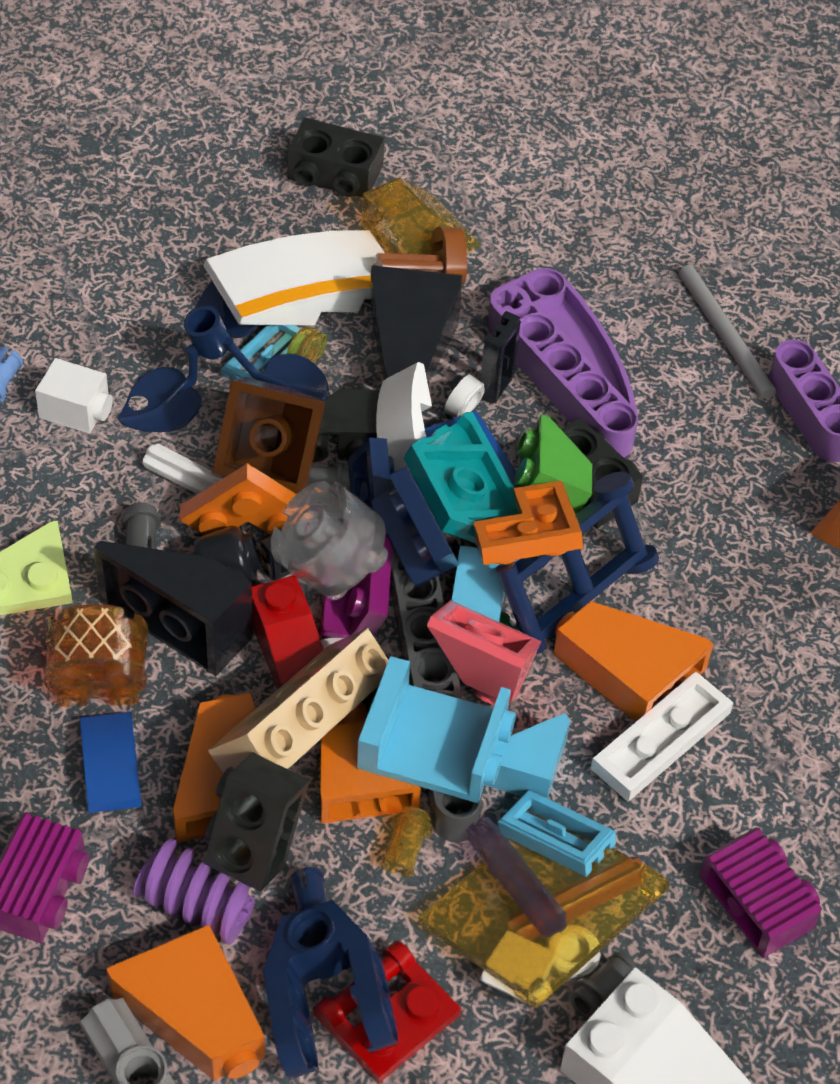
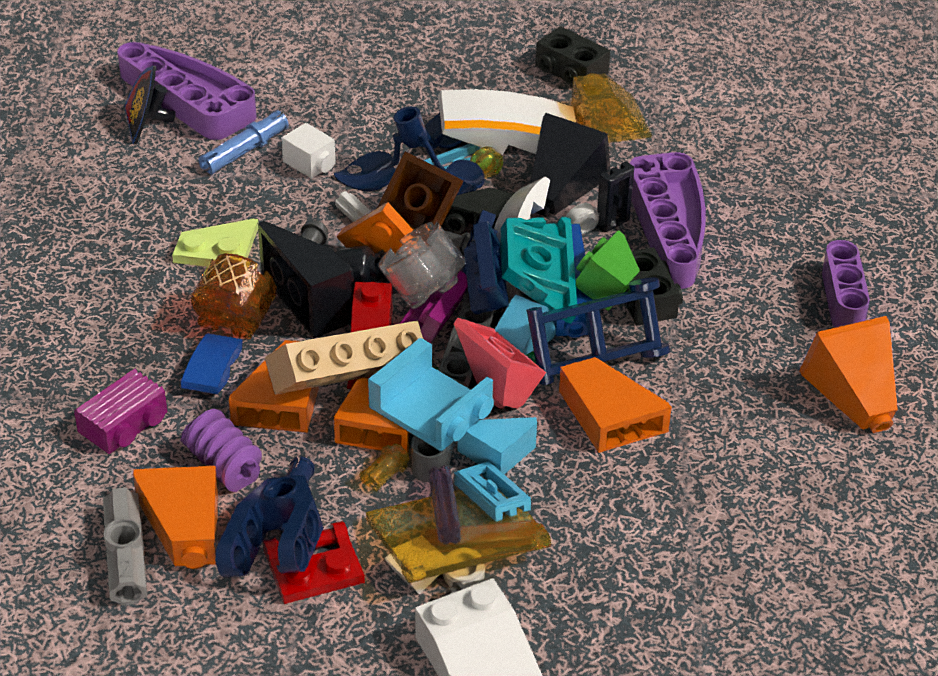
camera: 25 degrees right, 10 degrees down
(255, 820) = (272, 406): pearl dark grey brick -> none
(446, 256) = (617, 133): dark orange piece -> none
(541, 527) = (574, 290): orange plate -> none
(661, 736) = (606, 458): white plate -> none
(726, 332) = (806, 232): light grey bar -> none
(761, 891) = (623, 572): magenta brick -> none

